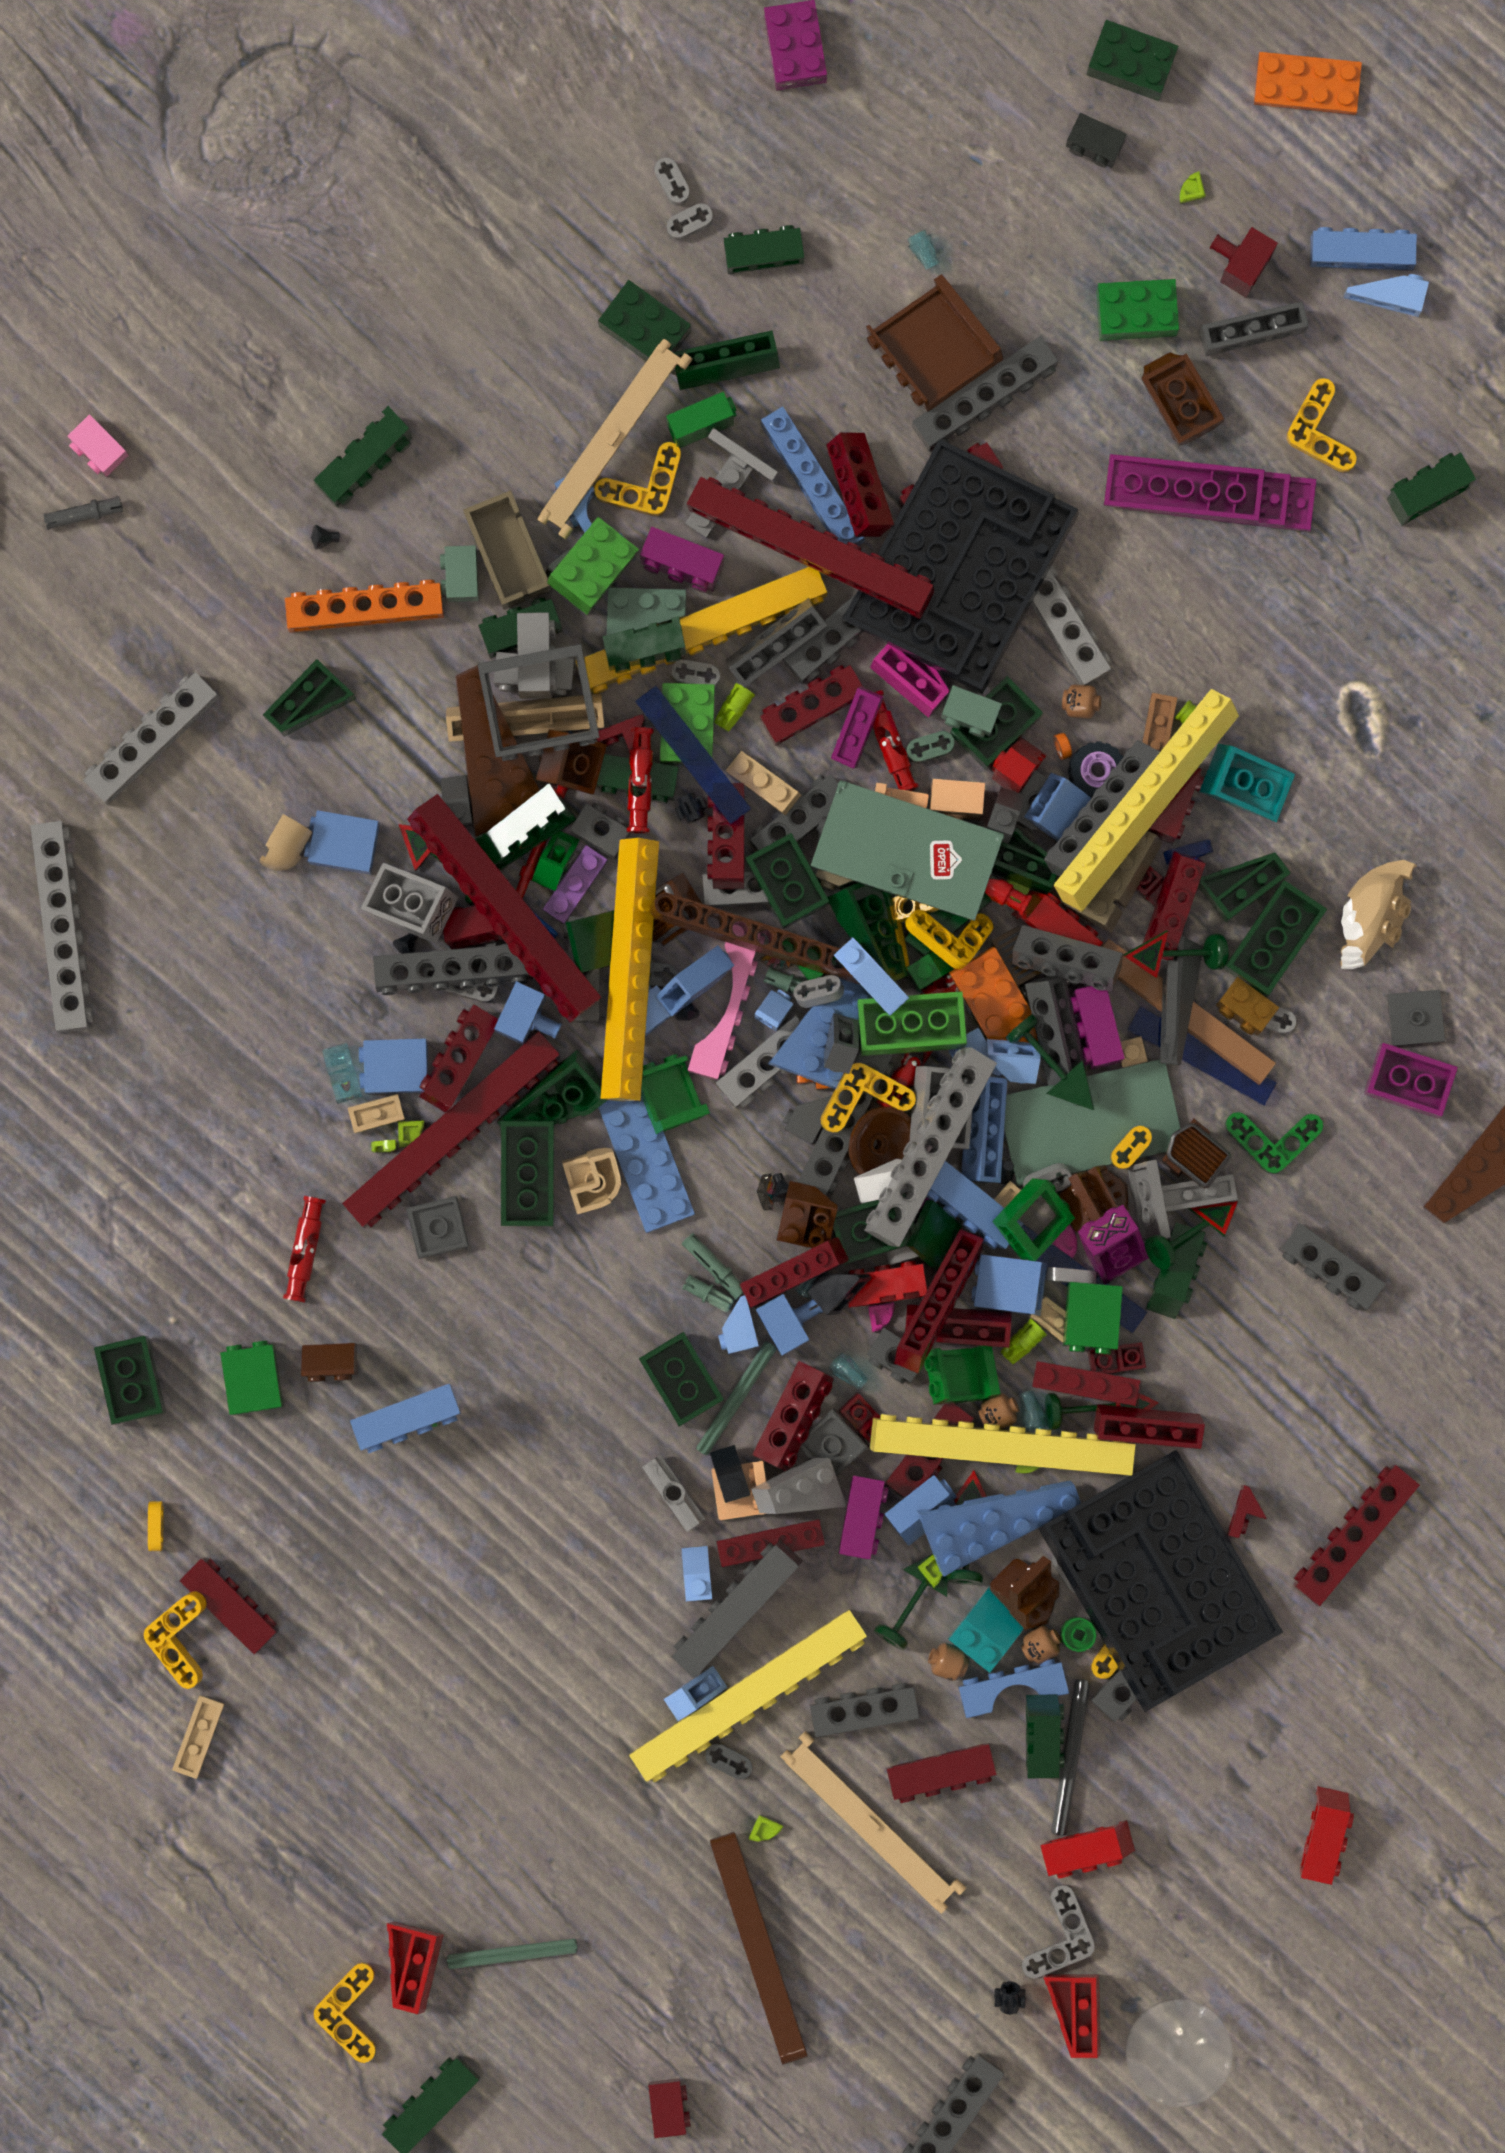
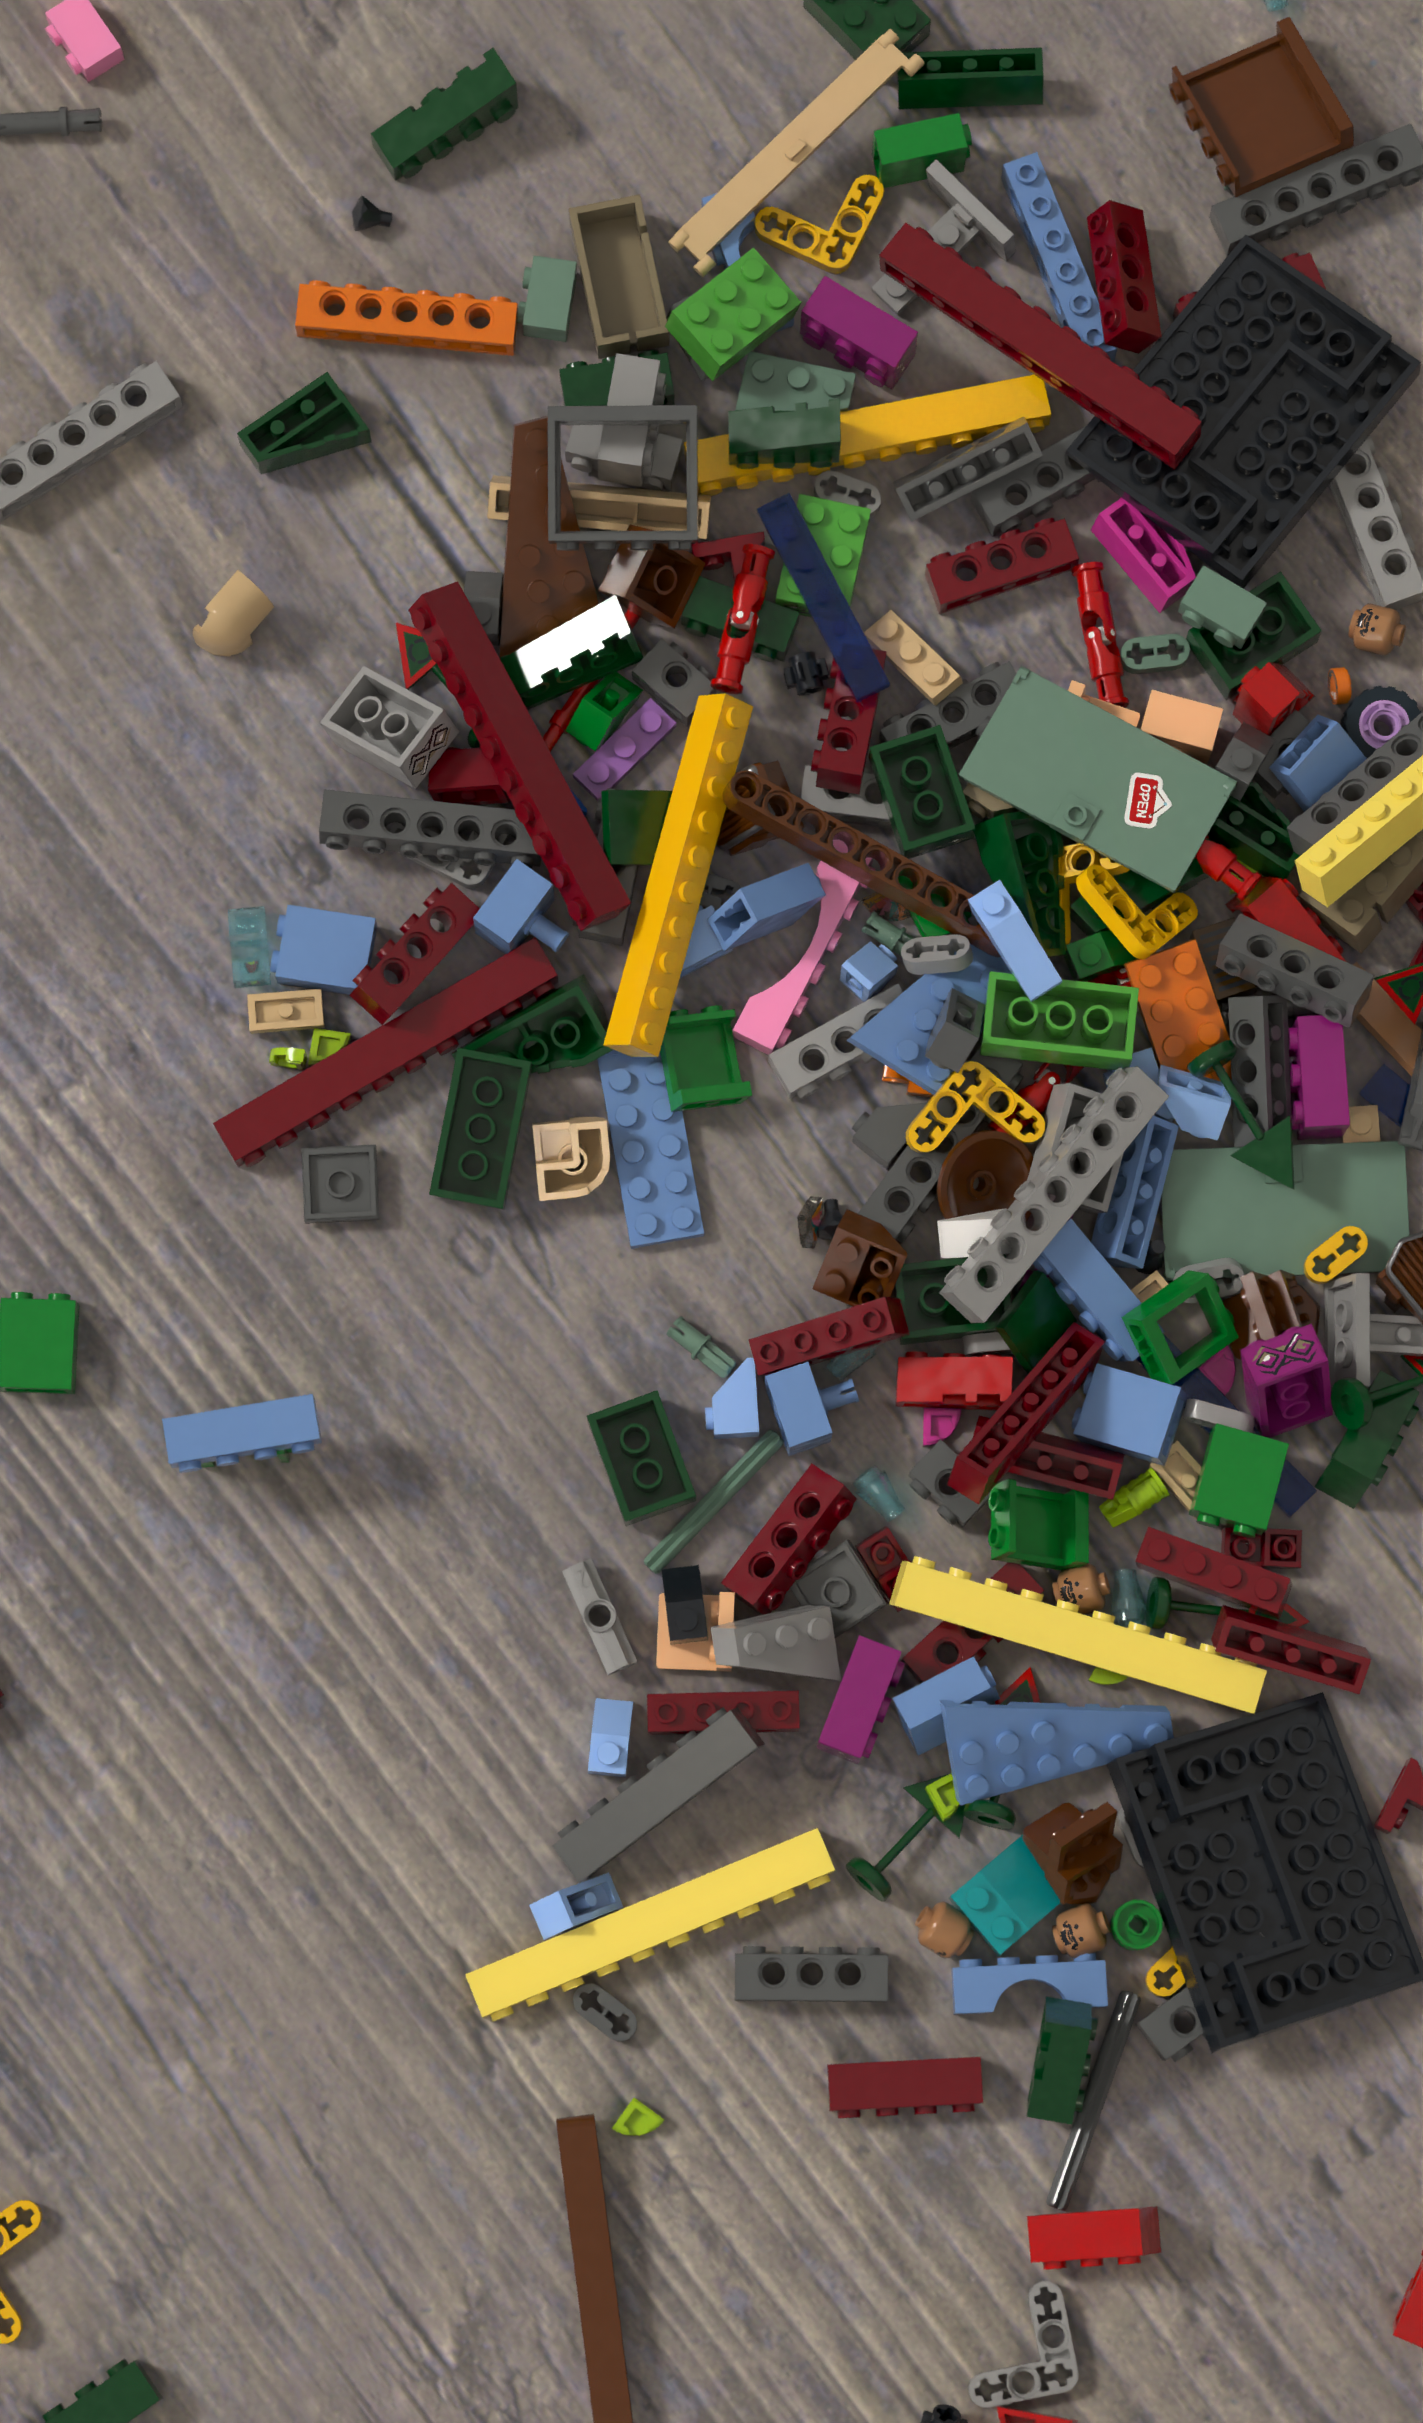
camera: 10 degrees right, 5 degrees down
(301, 1269) = (137, 1202): red piece -> none
(329, 1360) = (151, 1340): reddish brown slope -> none
(342, 842) = (313, 631): medium blue brick -> none
(405, 944) = (374, 784): black rock -> none
(413, 1965) = (98, 2216): red wedge -> none
(512, 1953) = (243, 2228): sand green axle -> none
(688, 1013) = (747, 954): black rock -> none
(710, 1262) = (726, 1323): sand green pin -> none
(734, 707) = (892, 548): lime hinge -> none
(837, 1290) = (885, 1373): black slope -> none
(857, 727) = (1058, 605): magenta plate -> none
(870, 1825) = (789, 2143): tan piece -> none

